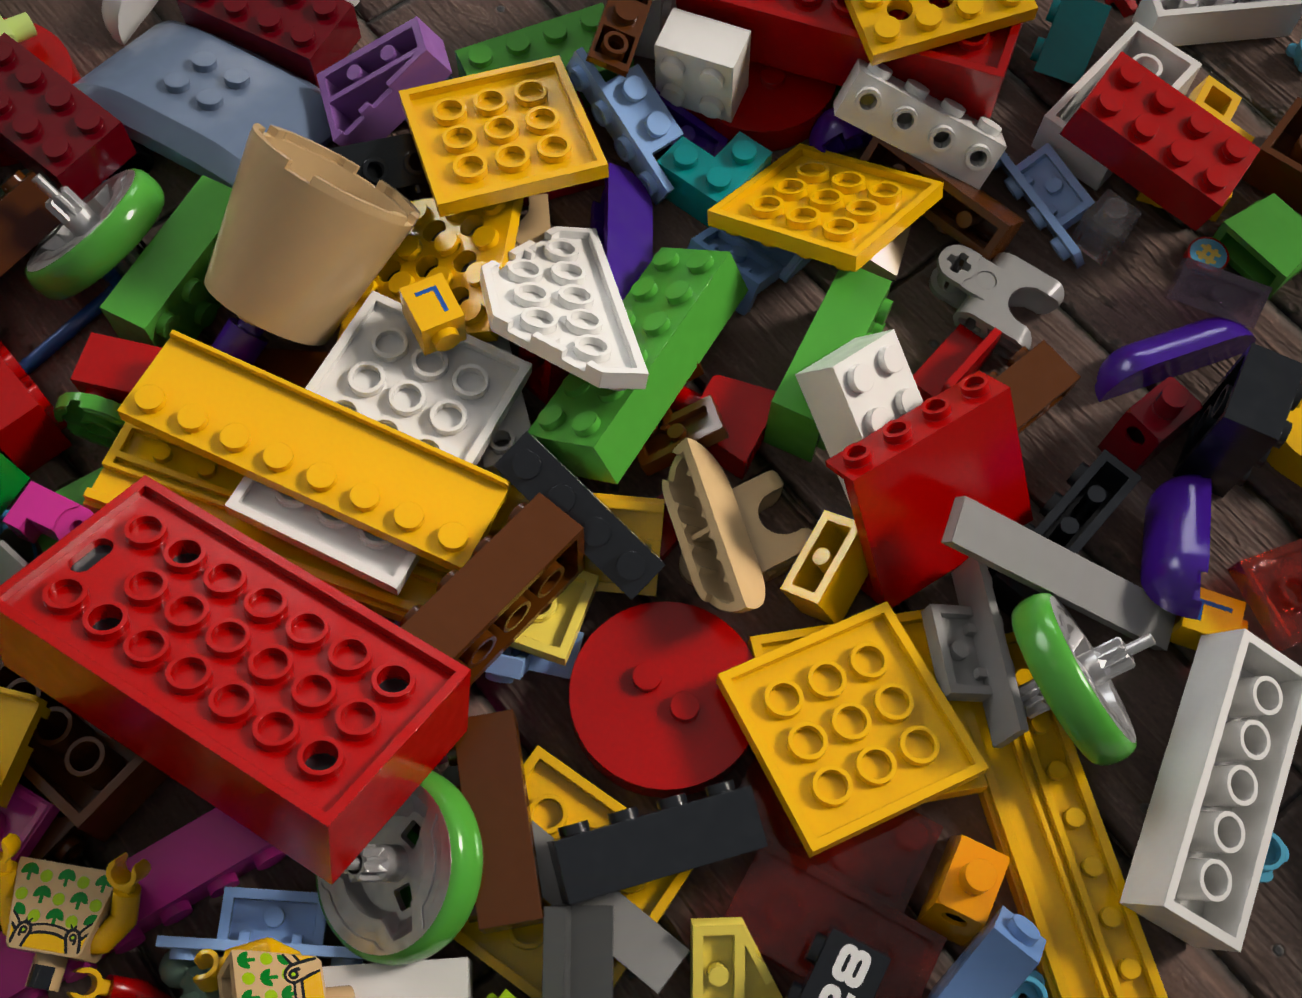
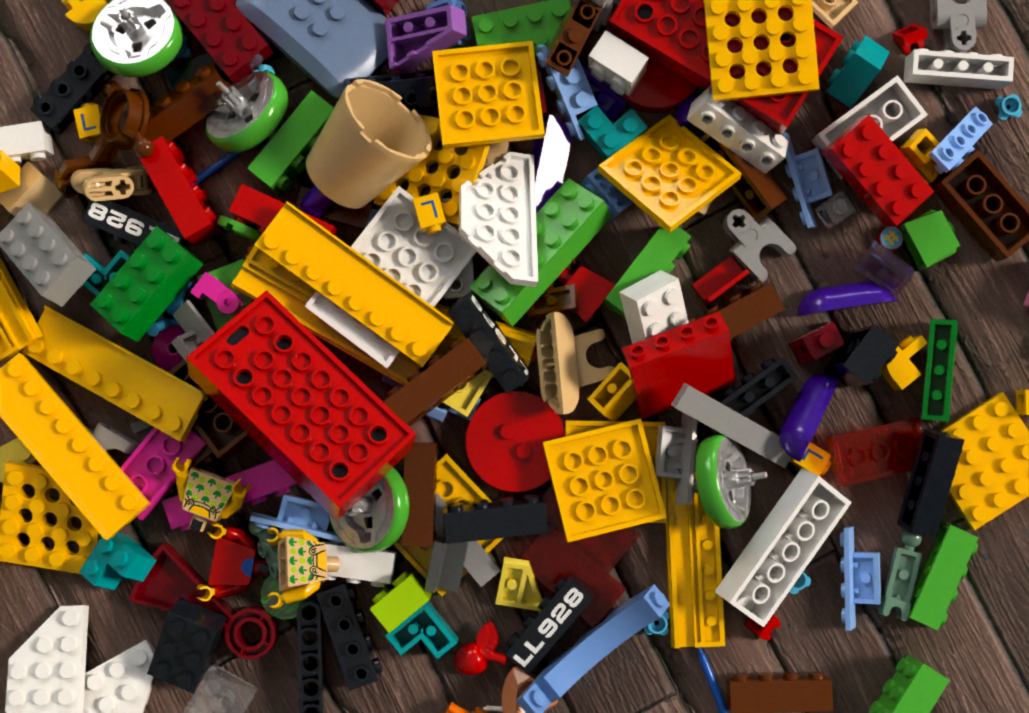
camera: 15 degrees right, 20 degrees up
(964, 887) = (641, 567): light orange torso -> none
(1232, 965) = (763, 632): none -> red tile
(1263, 92) = (960, 141): none -> light blue bracket

